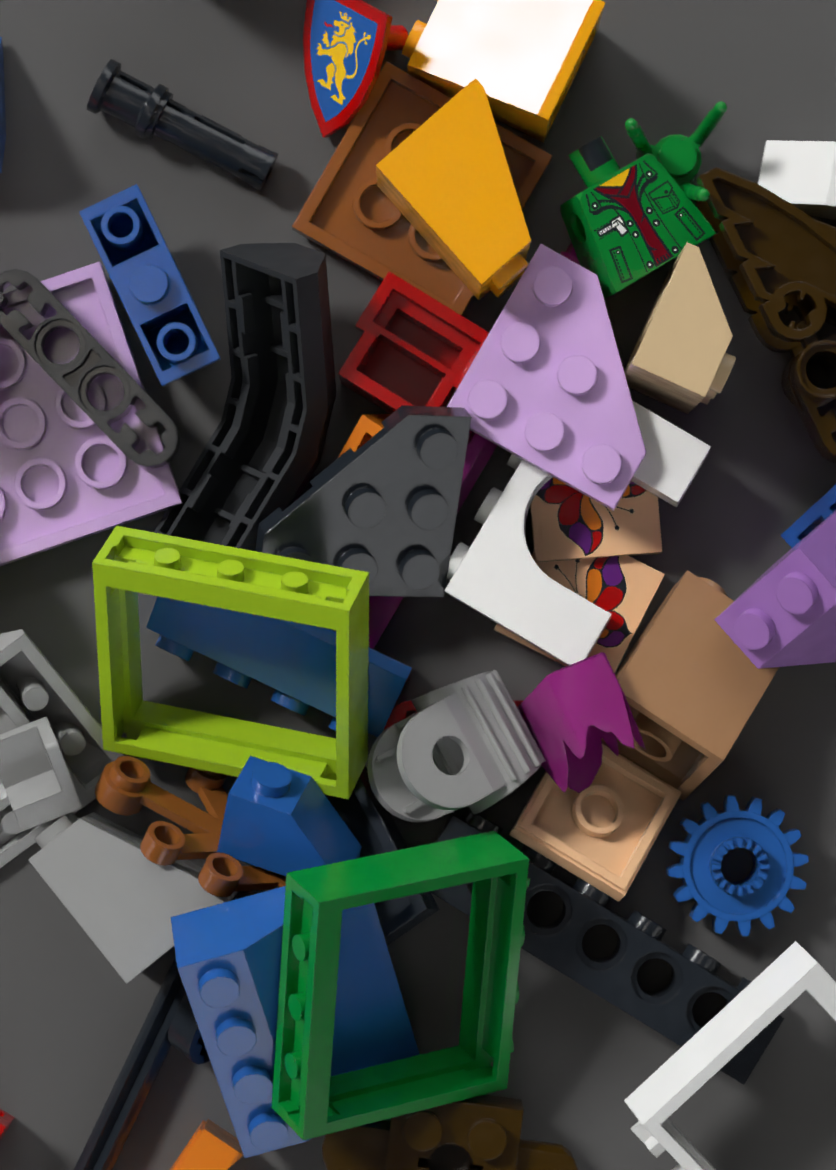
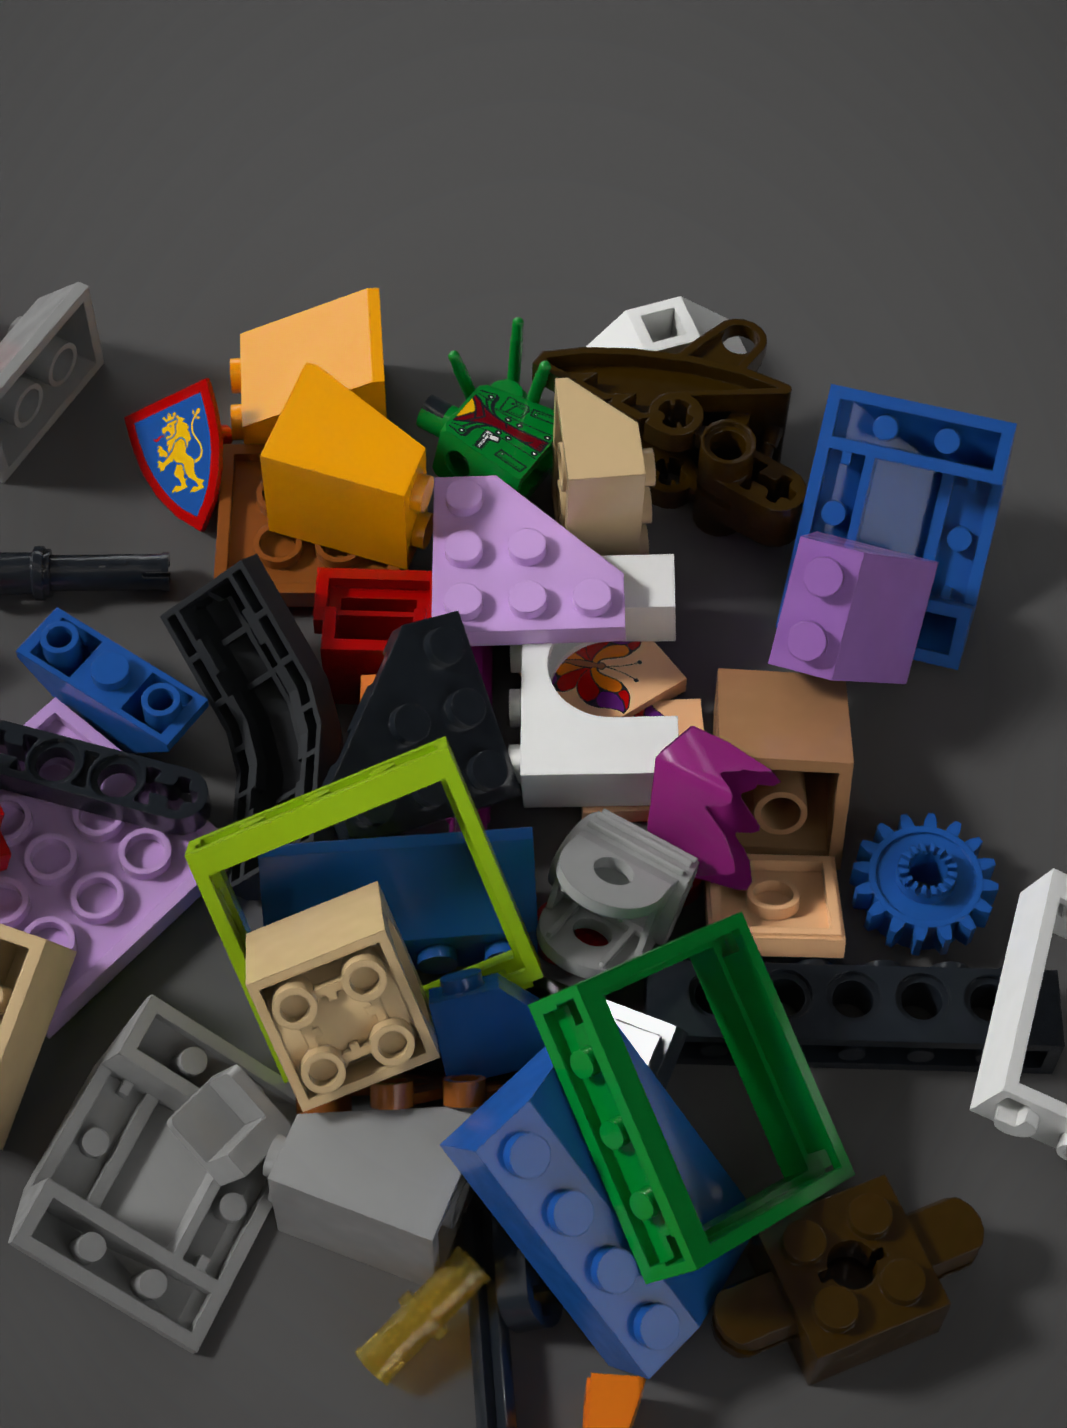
camera: 35 degrees left, 30 degrees down
(109, 1000) = (422, 1316): none -> clear yellow pin
(159, 749) = (339, 996): none -> tan brick

